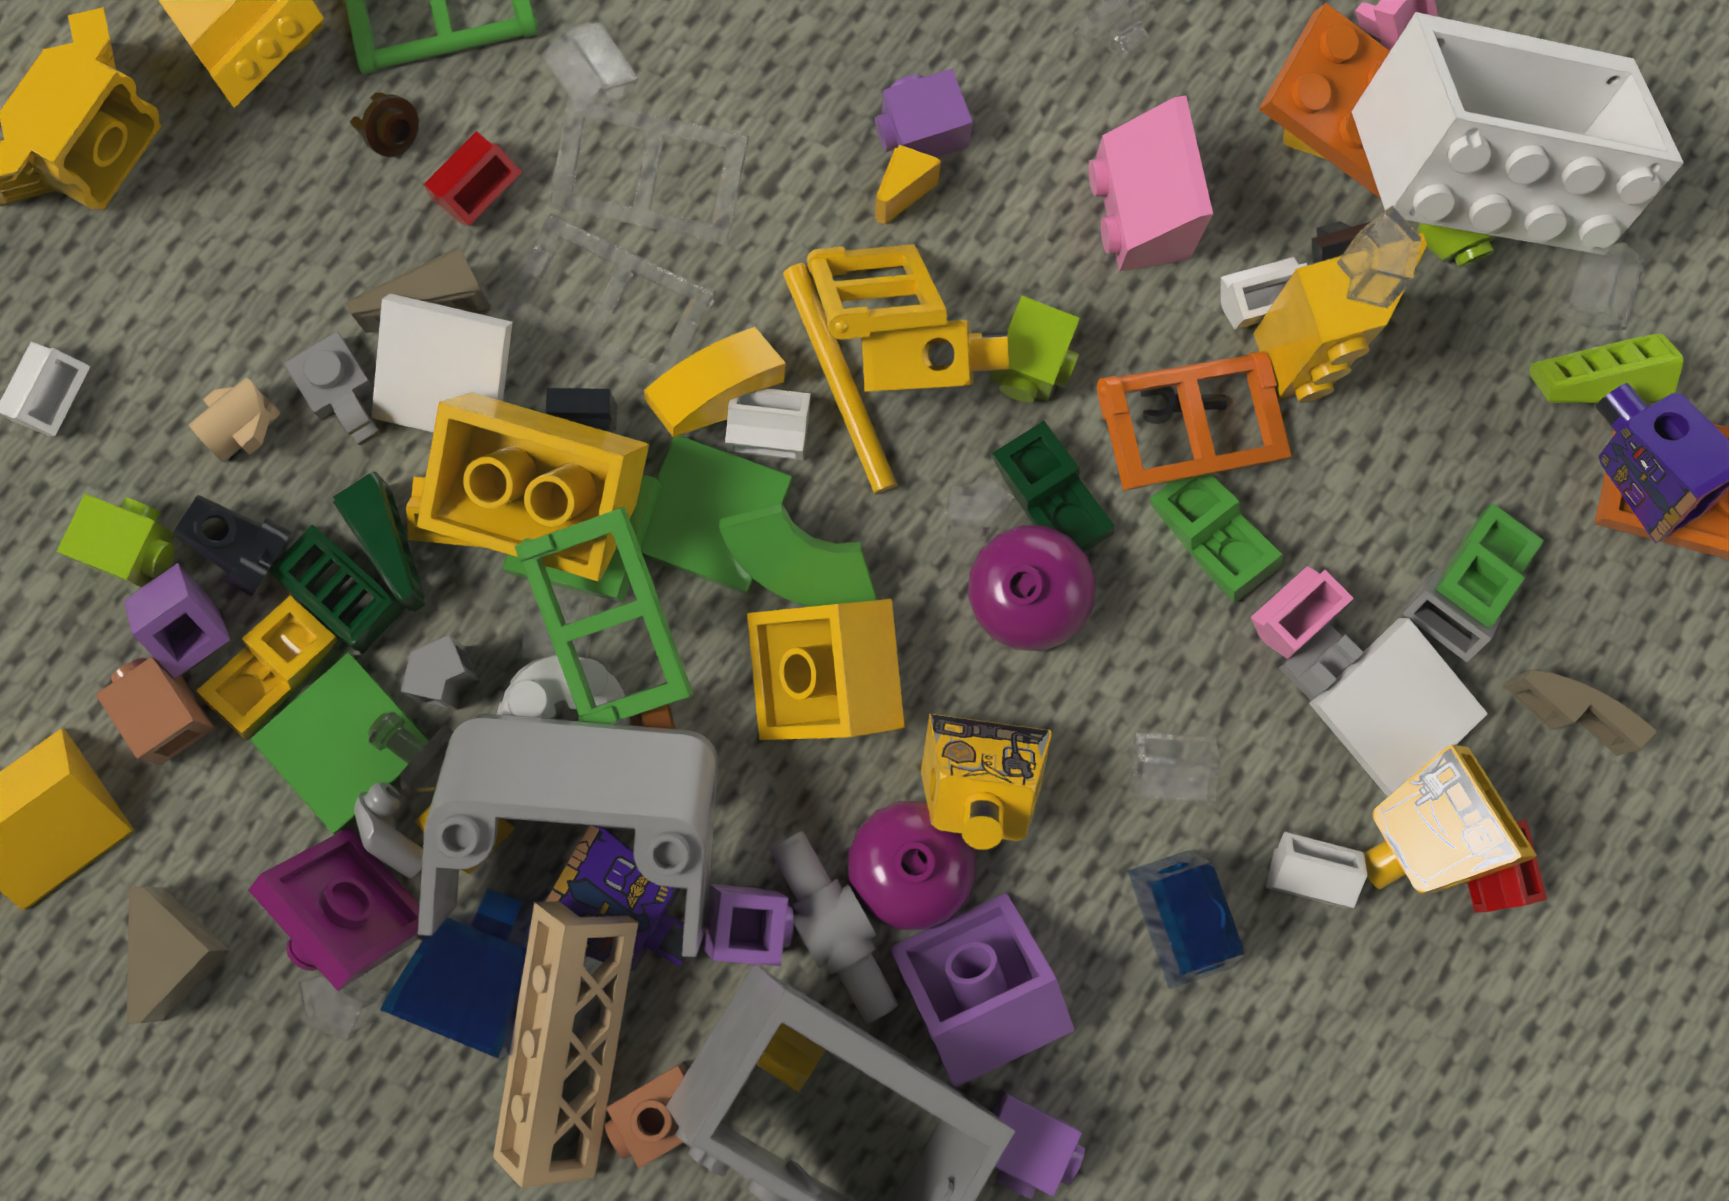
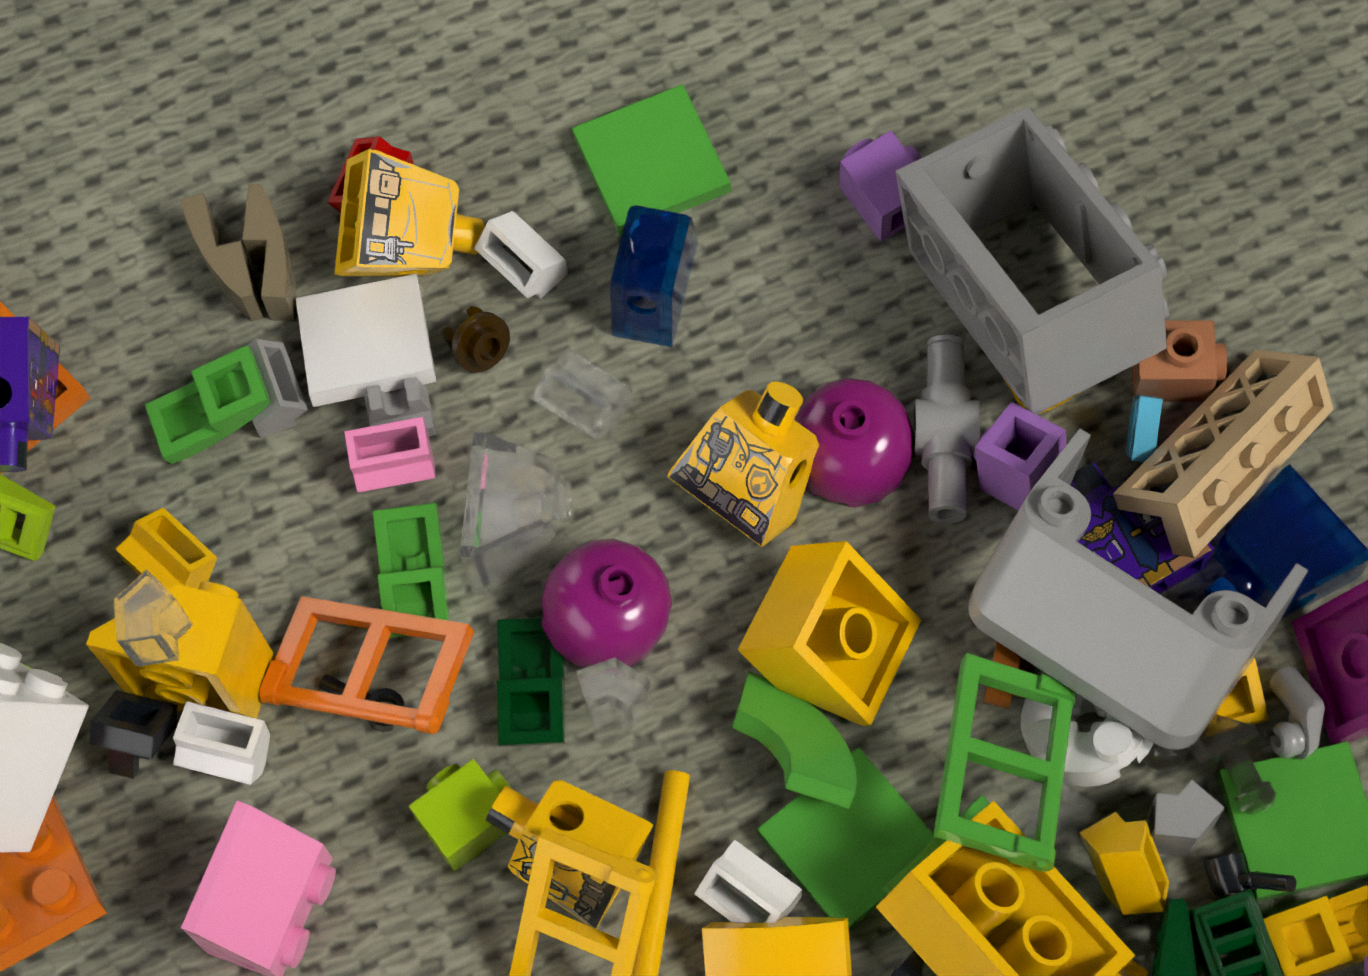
camera: 140 degrees left, 10 degrees down
(375, 657) = (1231, 875): none -> black hand
(465, 609) = (1127, 864): none -> yellow piece
(653, 1025) = (1143, 427): none -> medium azure tile
(982, 989) = (851, 315): medium lavender slope -> none
(1167, 611) = (508, 510): none -> clear slope
(1265, 1047) = (652, 156): none -> bright green tile
(1297, 766) = (478, 340): none -> dark brown plate
(1425, 419) = (167, 551): none -> yellow piece
(1555, 755) = (268, 246): none -> dark tan slope

